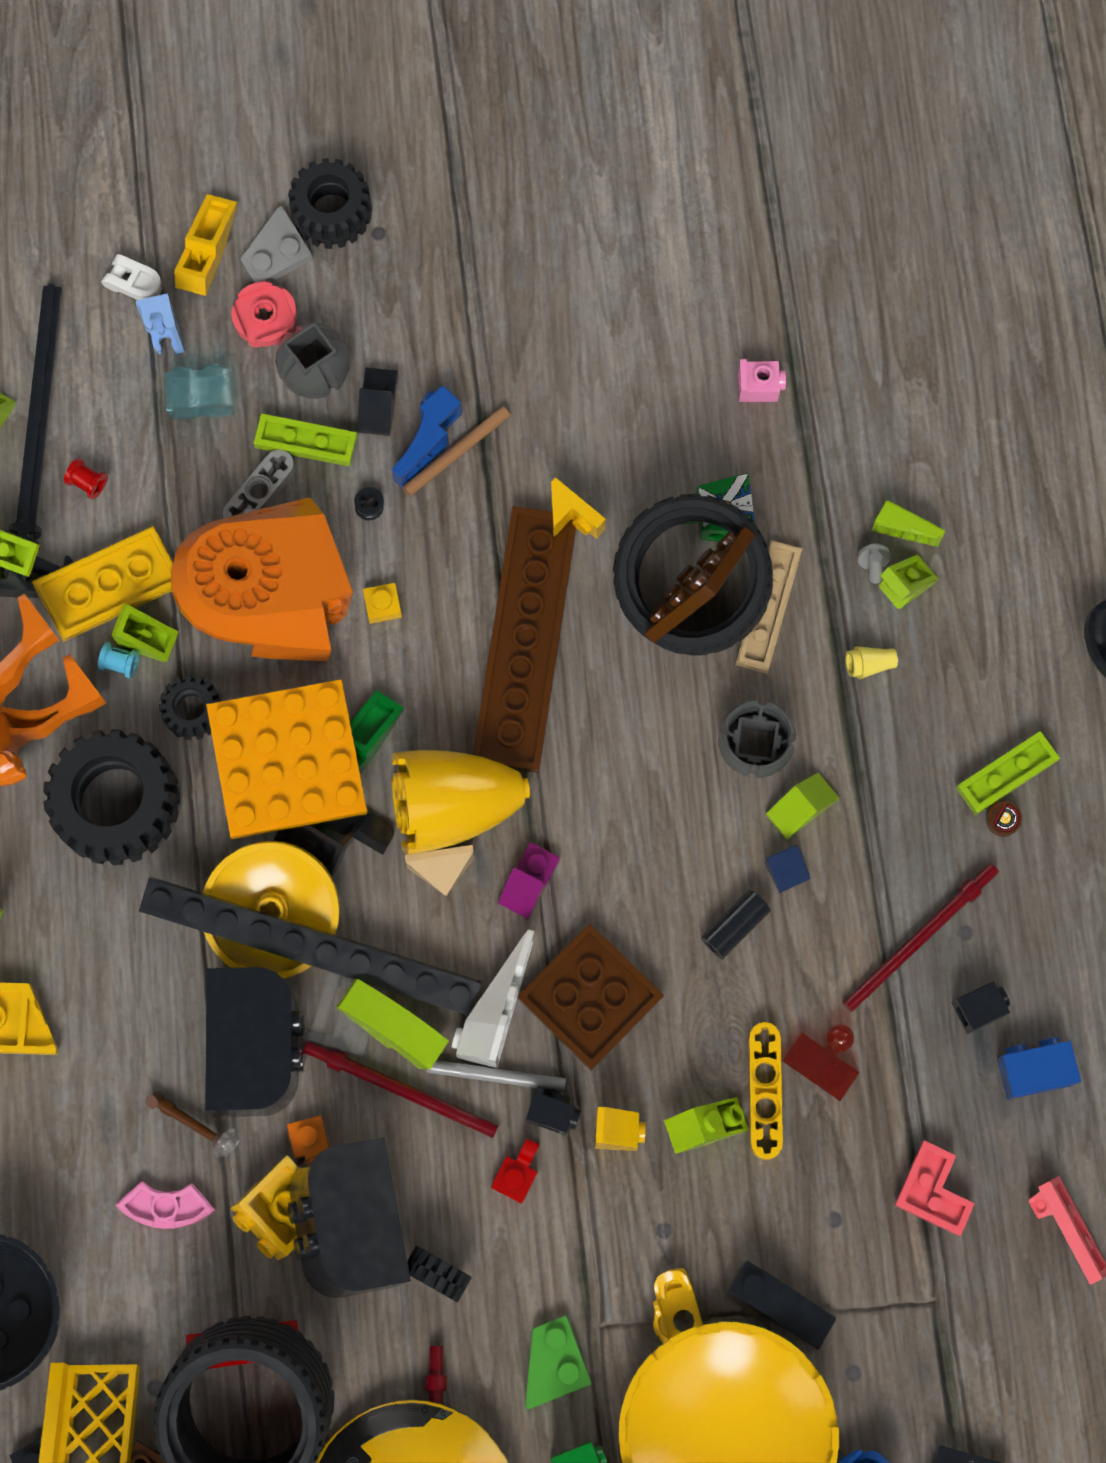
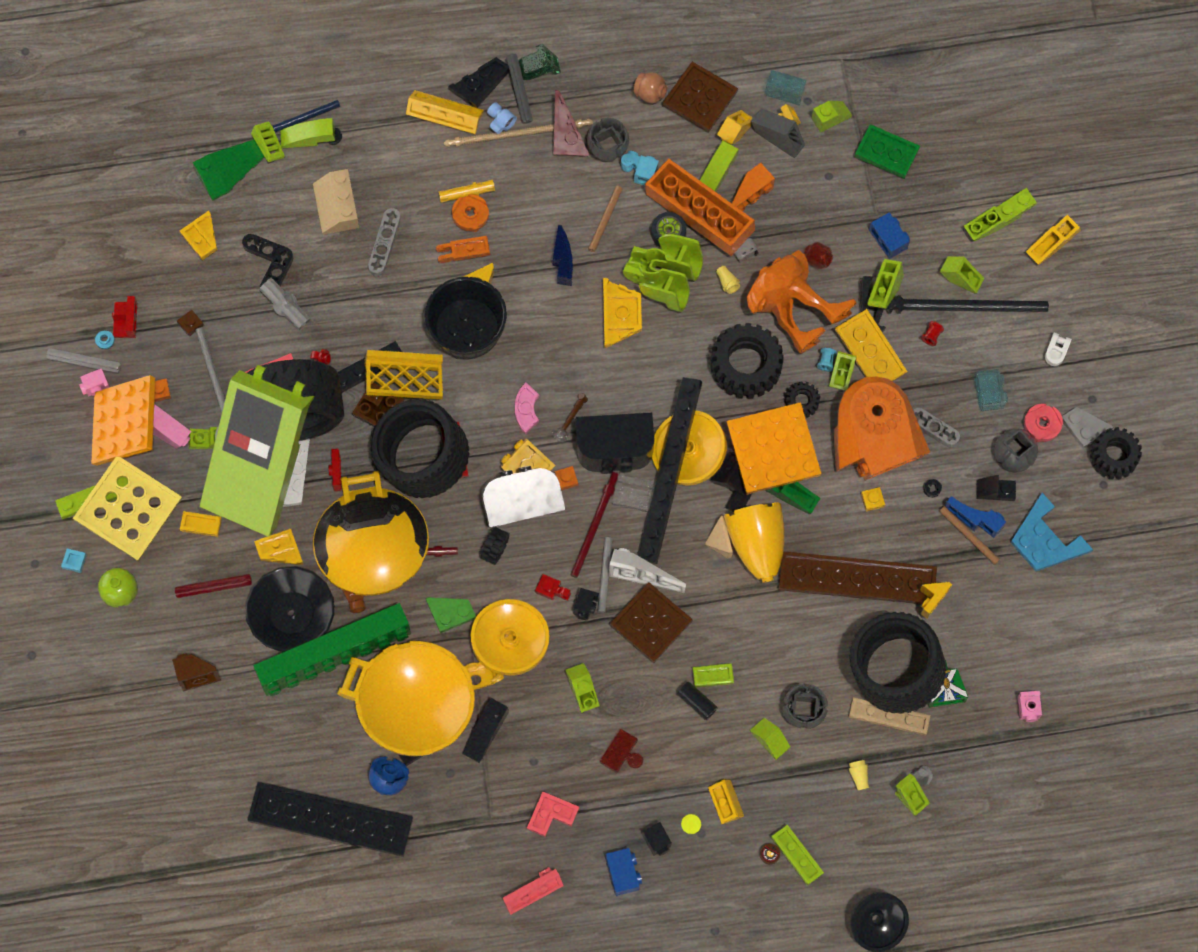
camera: 85 degrees right, 5 degrees down
(160, 321) = (1031, 366): light blue hinge -> none
(205, 245) = (1083, 387): yellow slope -> none
(306, 440) = (967, 450): lime plate -> none
(392, 1024) = (629, 515): lime slope -> none
(476, 341) = (1040, 544): none -> dark azure wing
(528, 880) = (715, 587): magenta slope -> none
(612, 1253) = (509, 637): none -> yellow dish
(618, 1129) = (577, 637): yellow slope -> none
(690, 894) = (713, 675): none -> lime plate
(698, 583) = (887, 655): reddish brown plate -> none
(769, 1091) = (603, 720): yellow beam -> none
(787, 869) = (732, 729): dark blue slope -> none
(903, 524) = (947, 788): lime slope -> none
(912, 887) = (726, 801): none -> yellow slope
(949, 949) = (691, 824): none -> neon yellow piece
(968, 892) = (724, 833): dark red bar -> none

